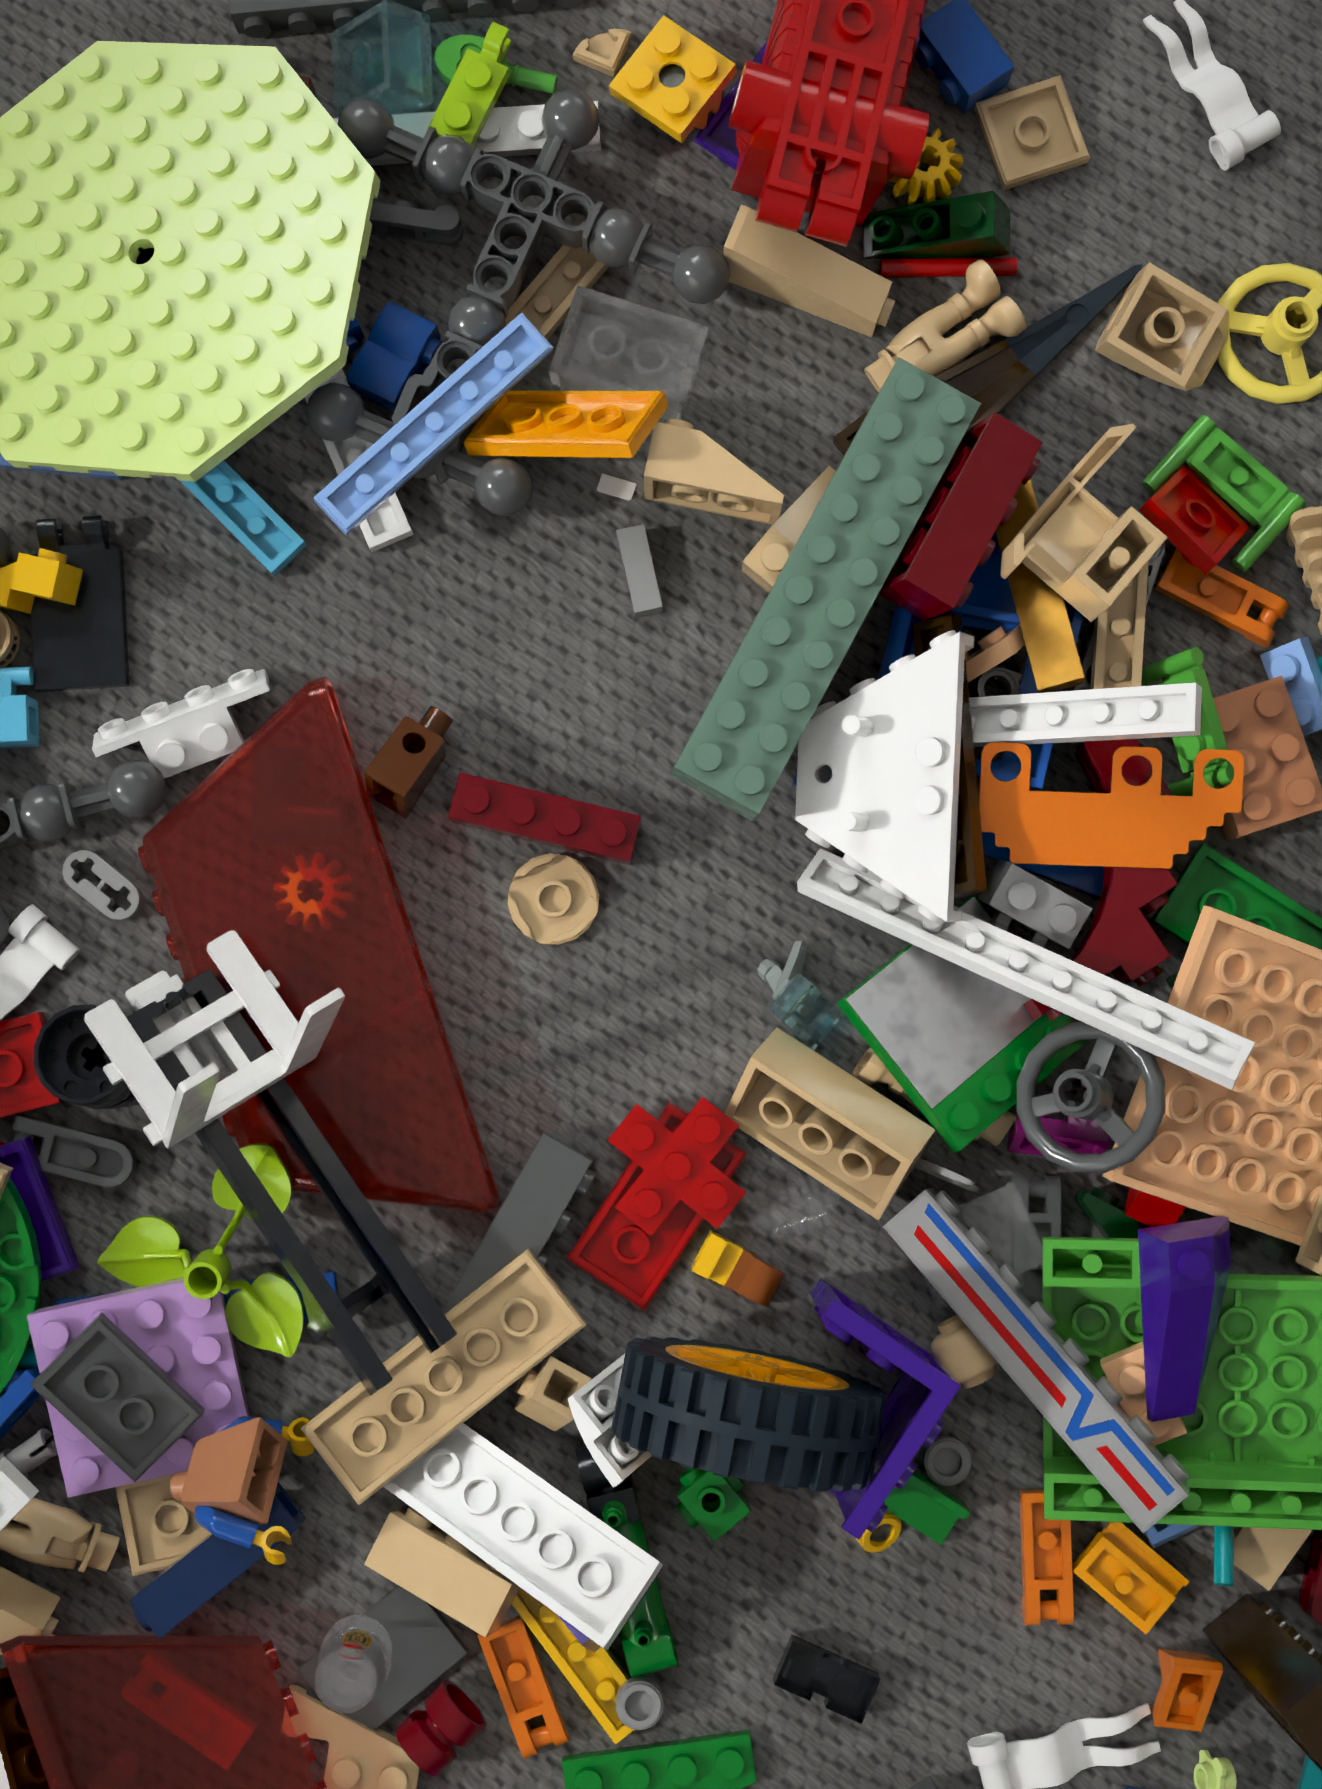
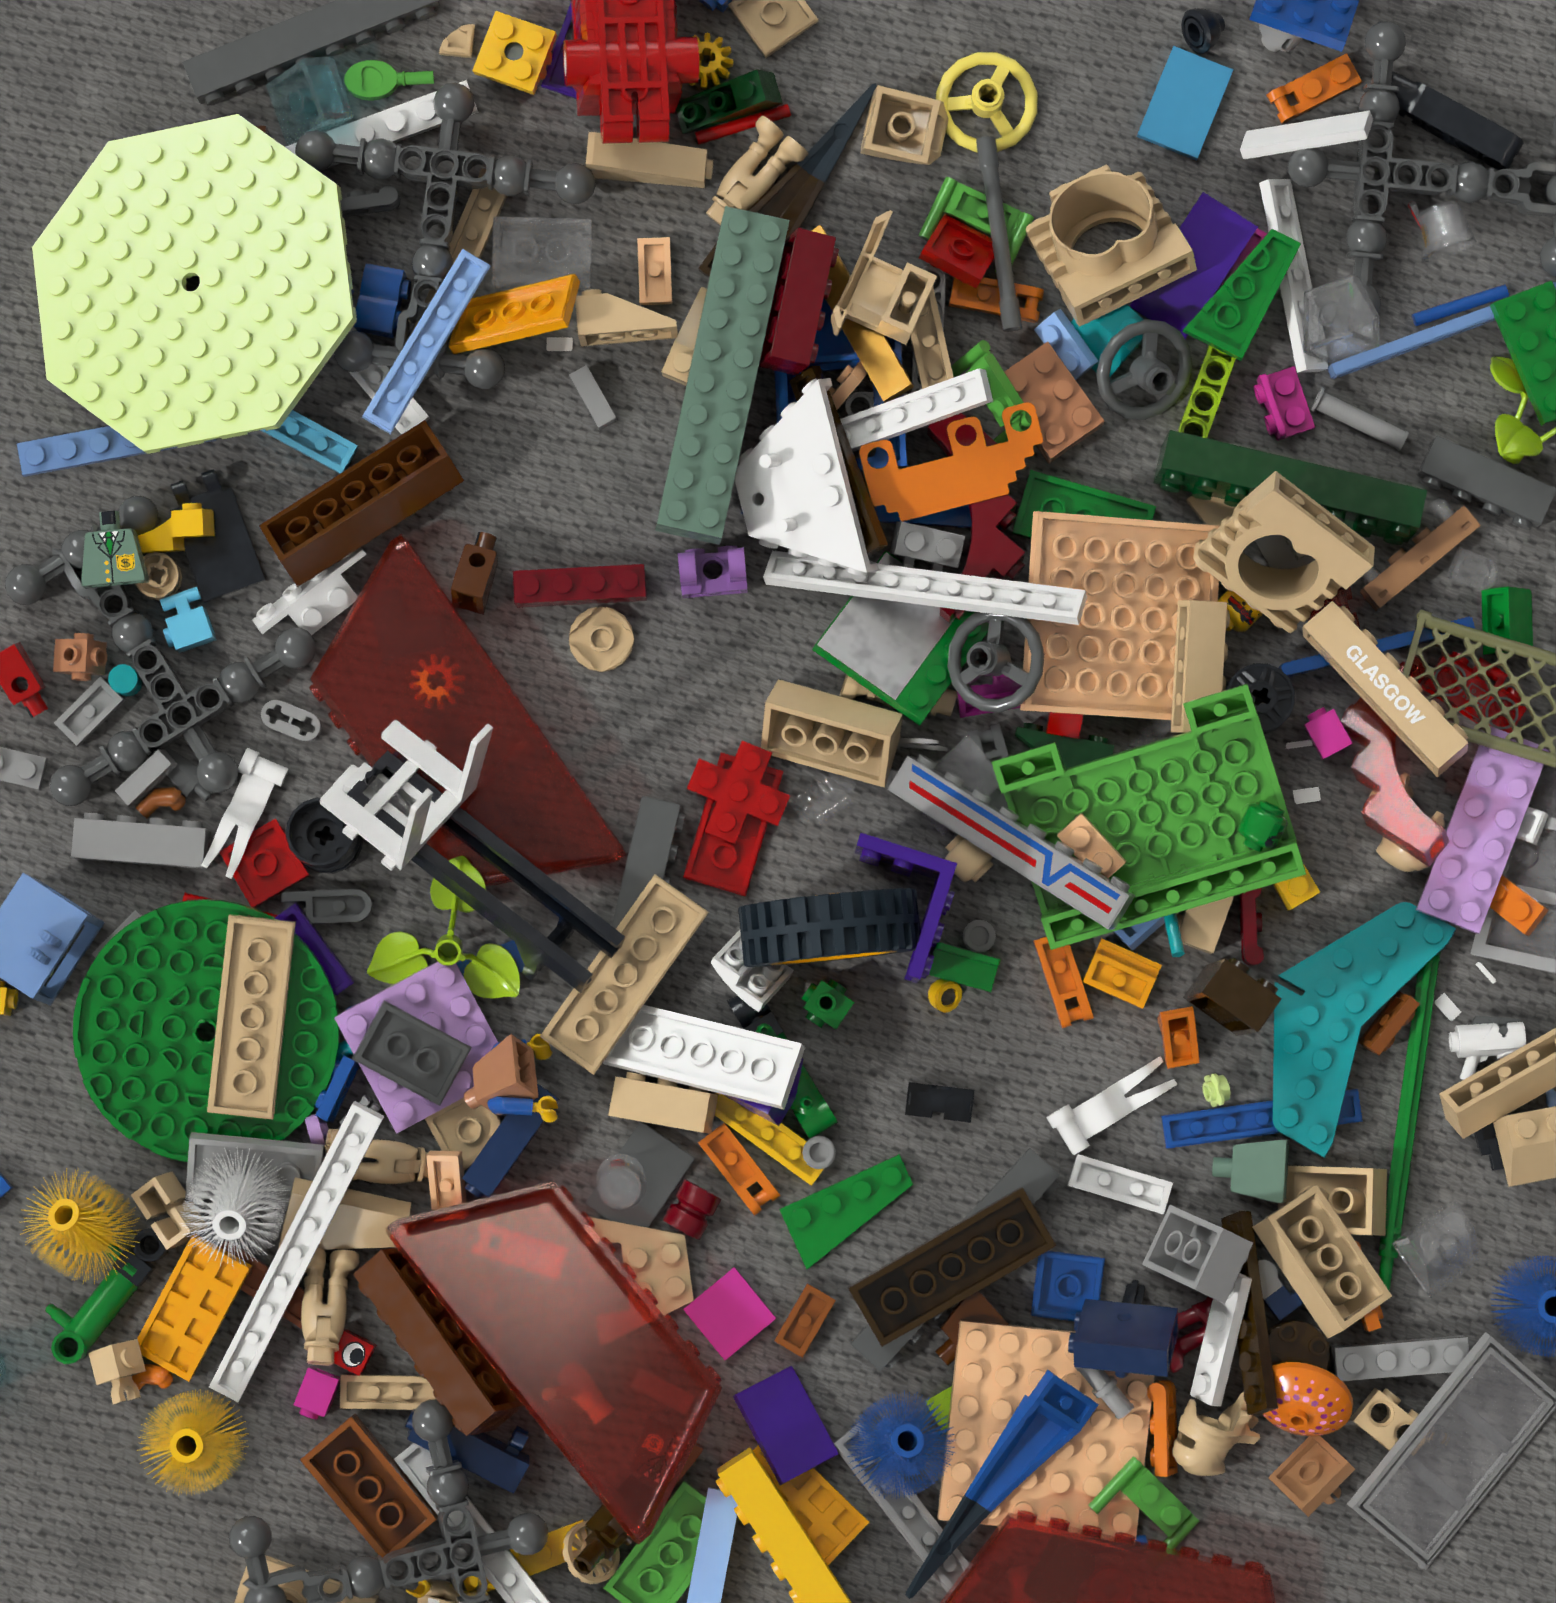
camera: 15 degrees left, 0 degrees up
(114, 1581) = (445, 1178): none -> light nougat plate
(280, 620) = (361, 503): none -> reddish brown brick
(474, 88) = (379, 101): lime plate -> none
(546, 1392) = (696, 967): tan brick -> none
(737, 1269) = (800, 849): leg -> none
(753, 873) = (696, 584): none -> medium lavender brick
(773, 426) = (654, 271): none -> light nougat plate
(797, 999) = (787, 656): clear light blue piece -> none
(1181, 1299) = (1093, 773): dark purple wedge -> none
(1242, 607) = (1008, 301): none -> dark grey piece

